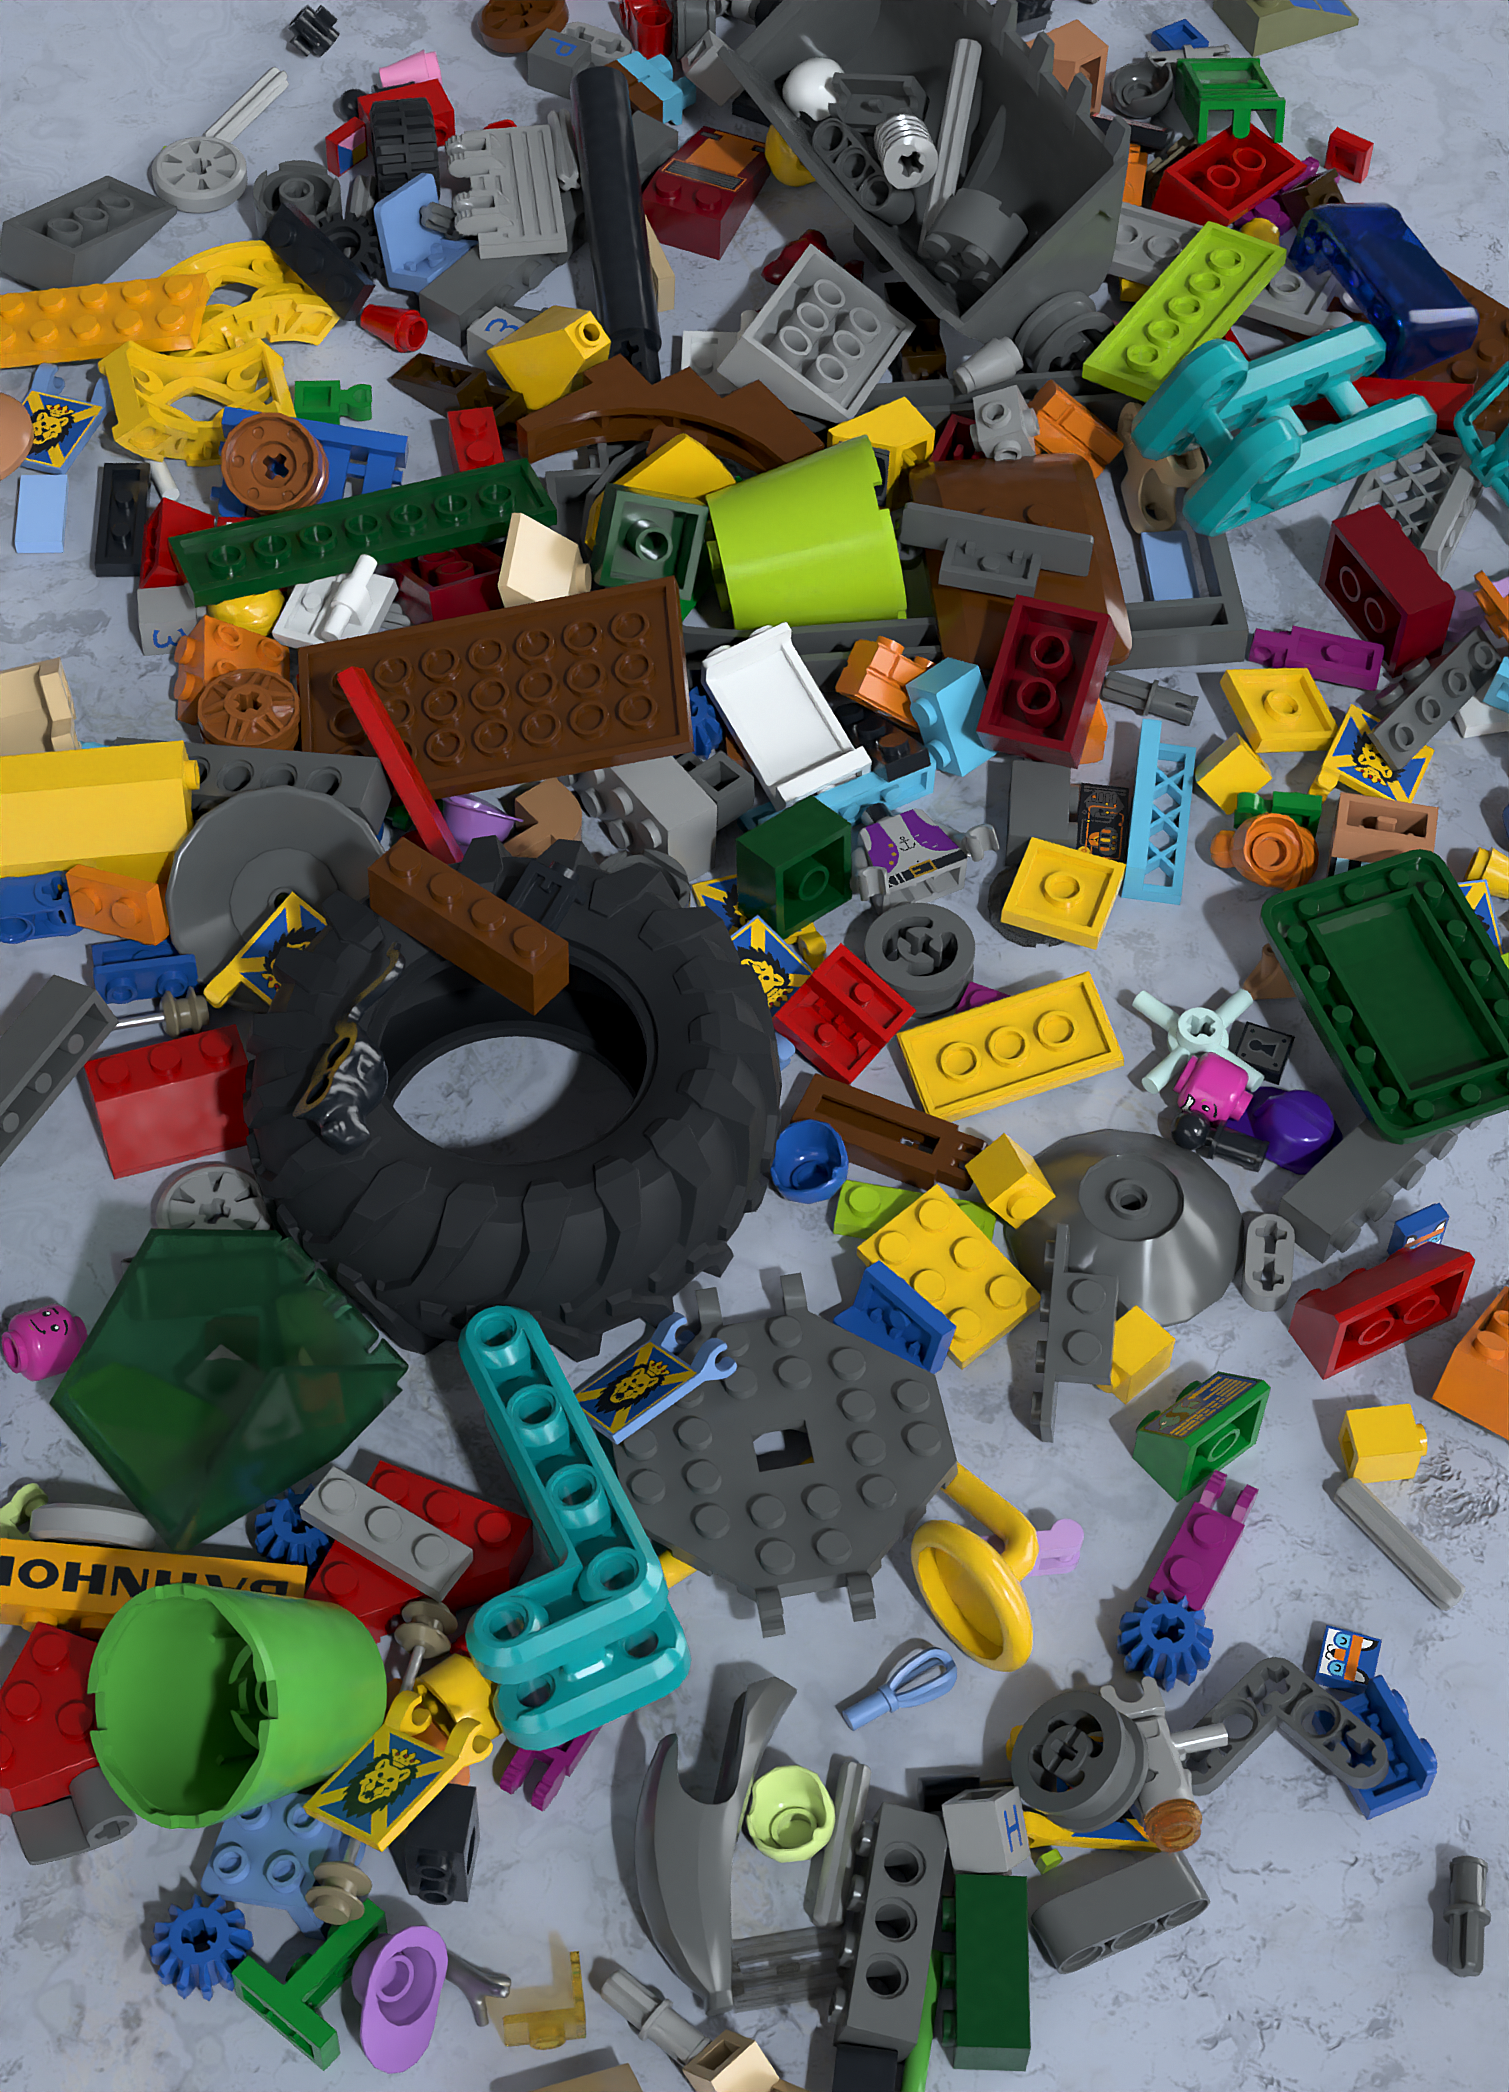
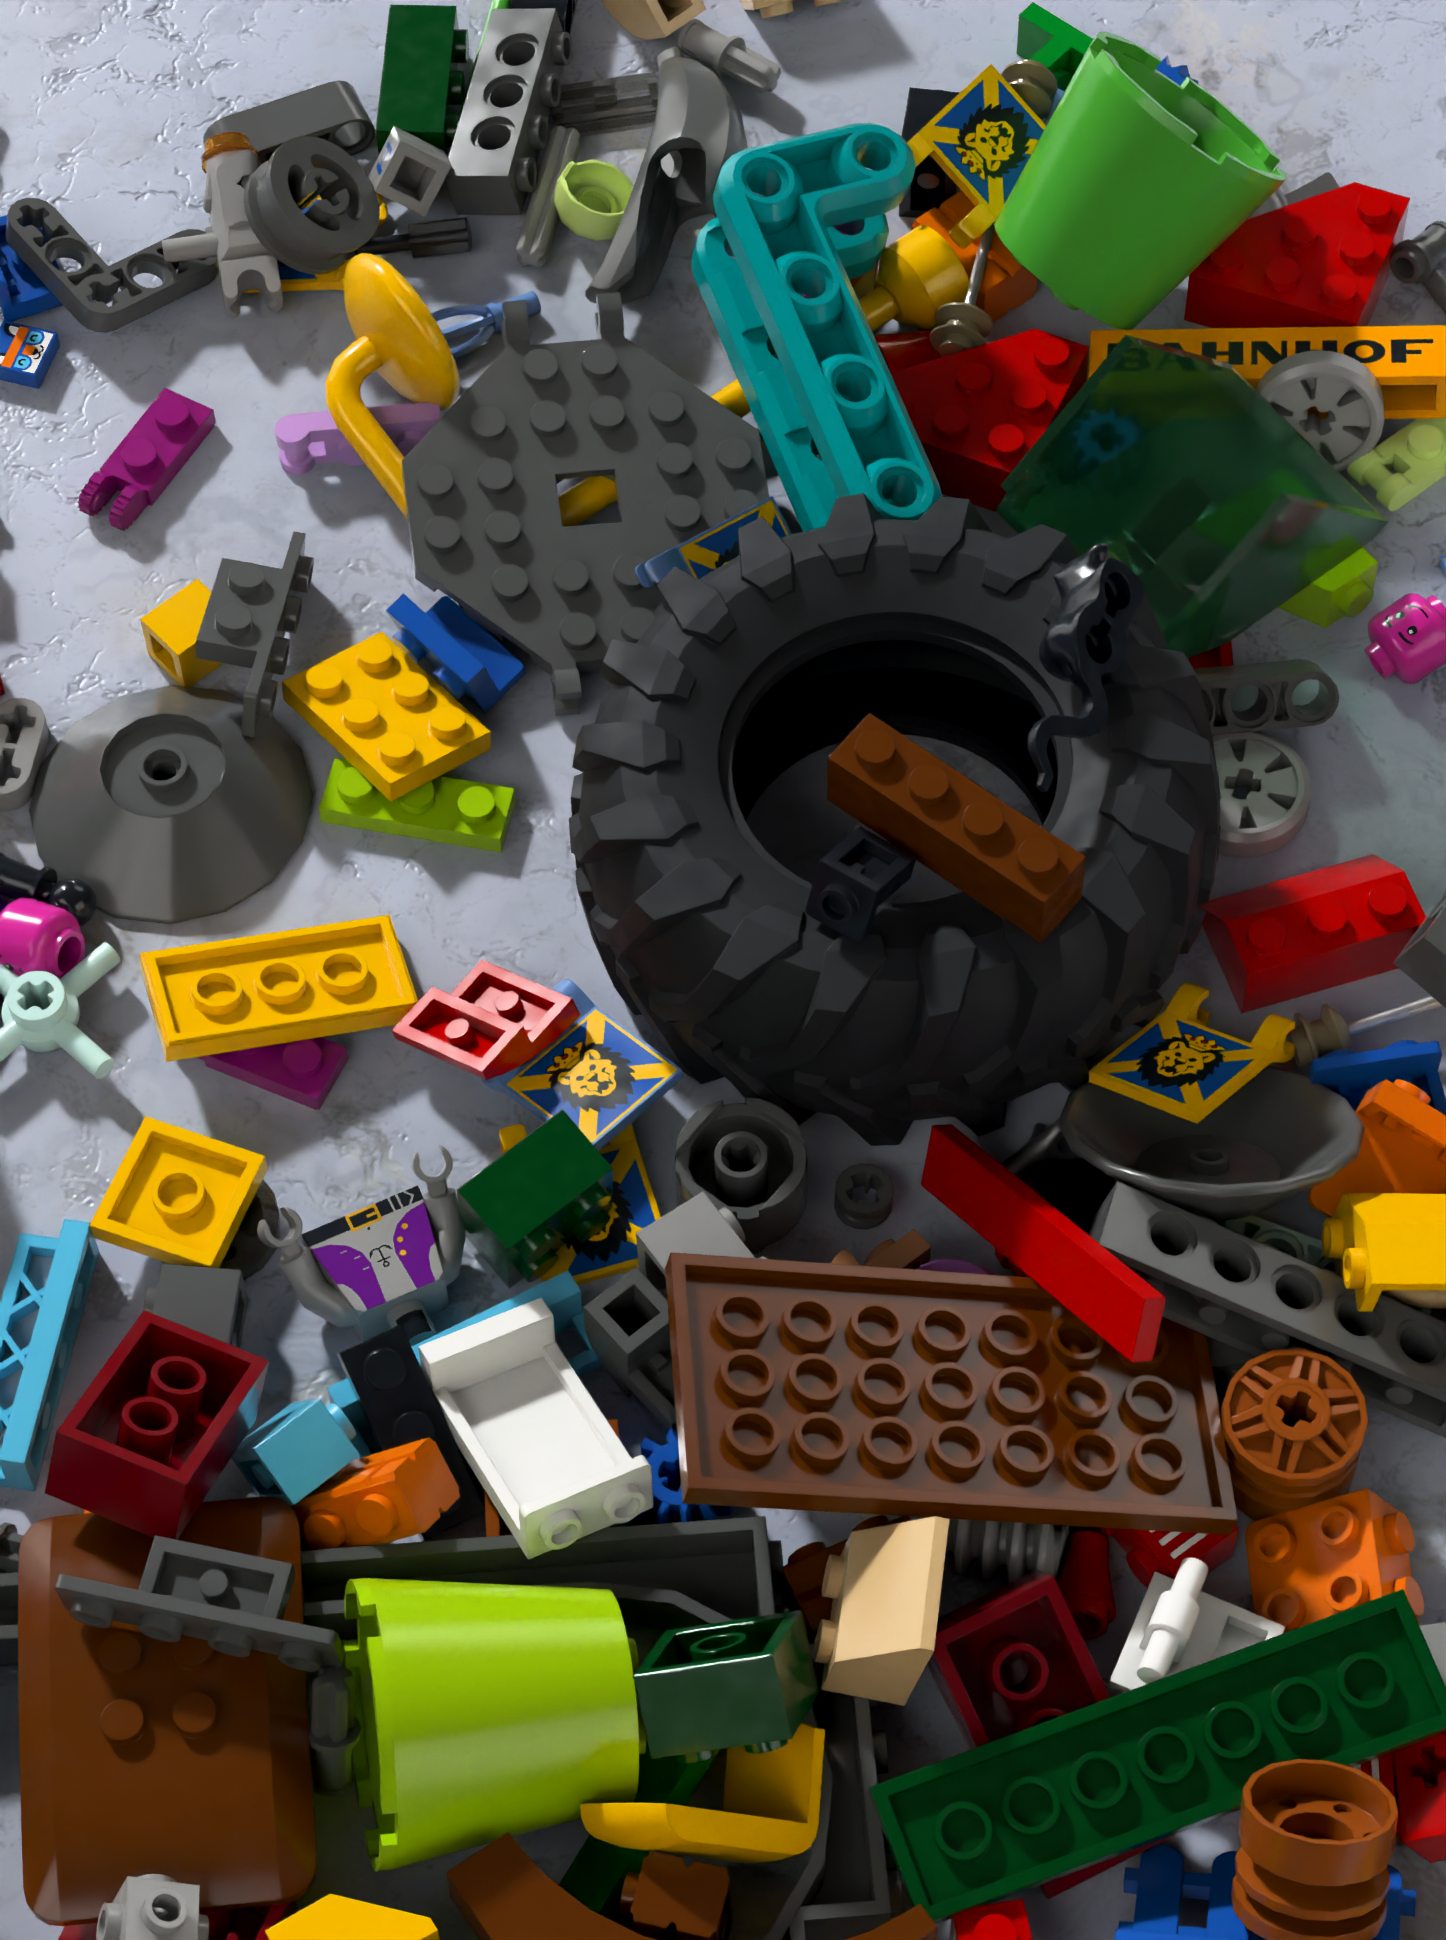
camera: 175 degrees left, 5 degrees up
(386, 1534) = (996, 374): light grey plate -> none
(399, 1994) = (969, 54): medium lavender piece -> none
(476, 1986) = (895, 88): flat silver bar -> none
(550, 2028) = (827, 48): clear yellow bracket -> none
(809, 1162) = (534, 842): blue hair -> none
(874, 1132) = (470, 910): reddish brown hinge -> none
(923, 938) = (395, 1090): dark grey wheel -> none
(1010, 1181) = (301, 807): yellow brick -> none
(1102, 820) = (105, 1319): tile -> none
(1165, 1640) = (205, 354): blue gear -> none
(1201, 1431) = (127, 532): green slope -> none

